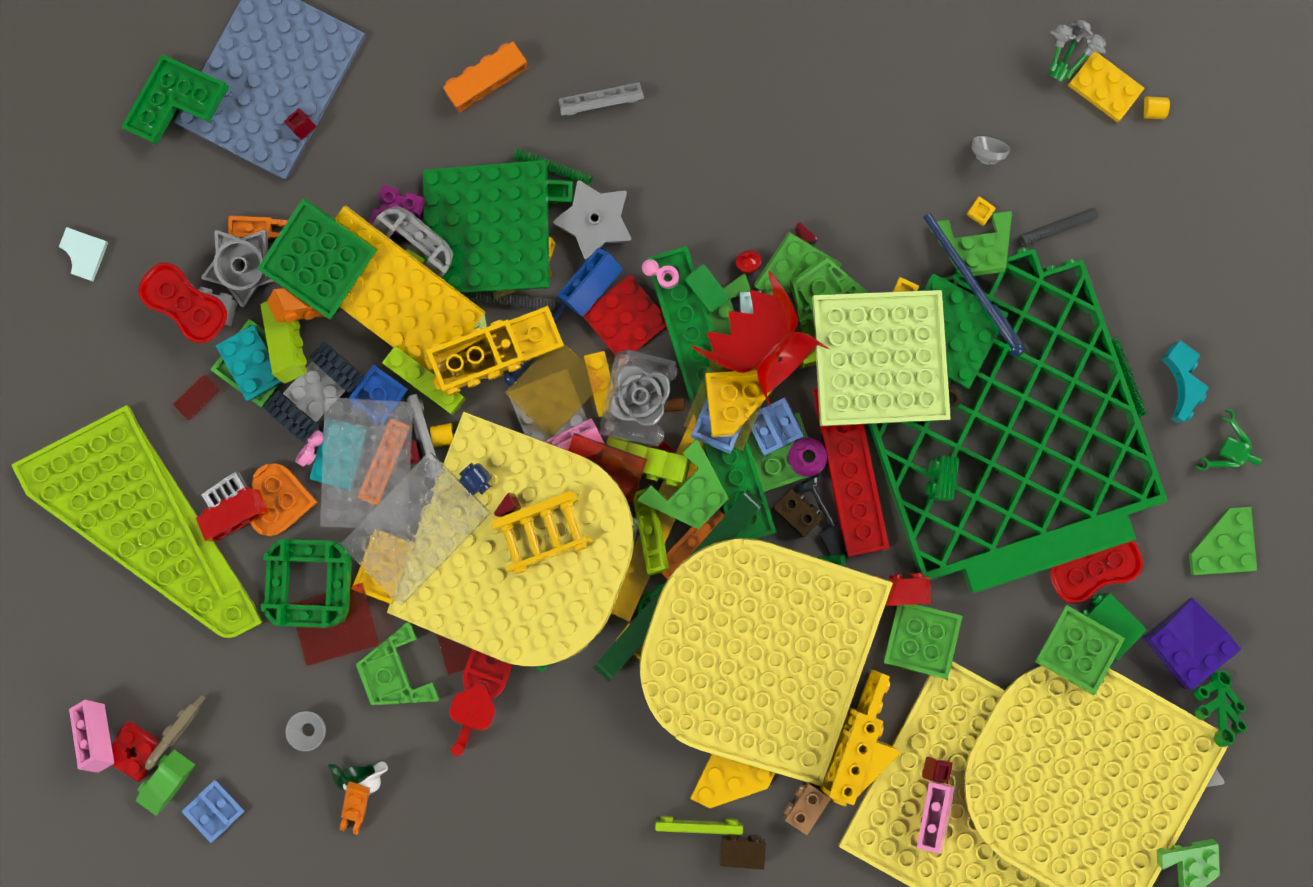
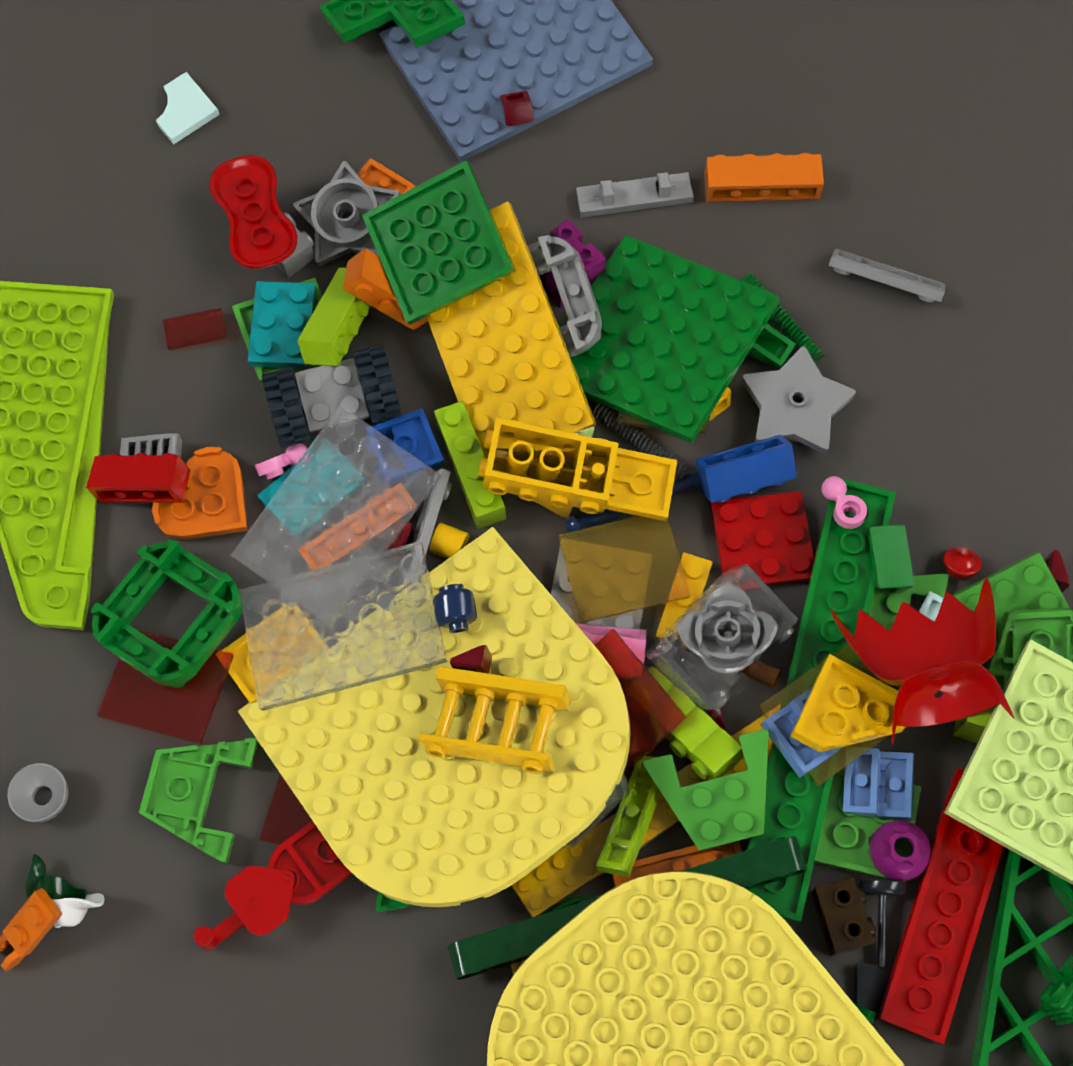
camera: 40 degrees right, 15 degrees down
(411, 137) = (634, 194): none -> light grey hinge

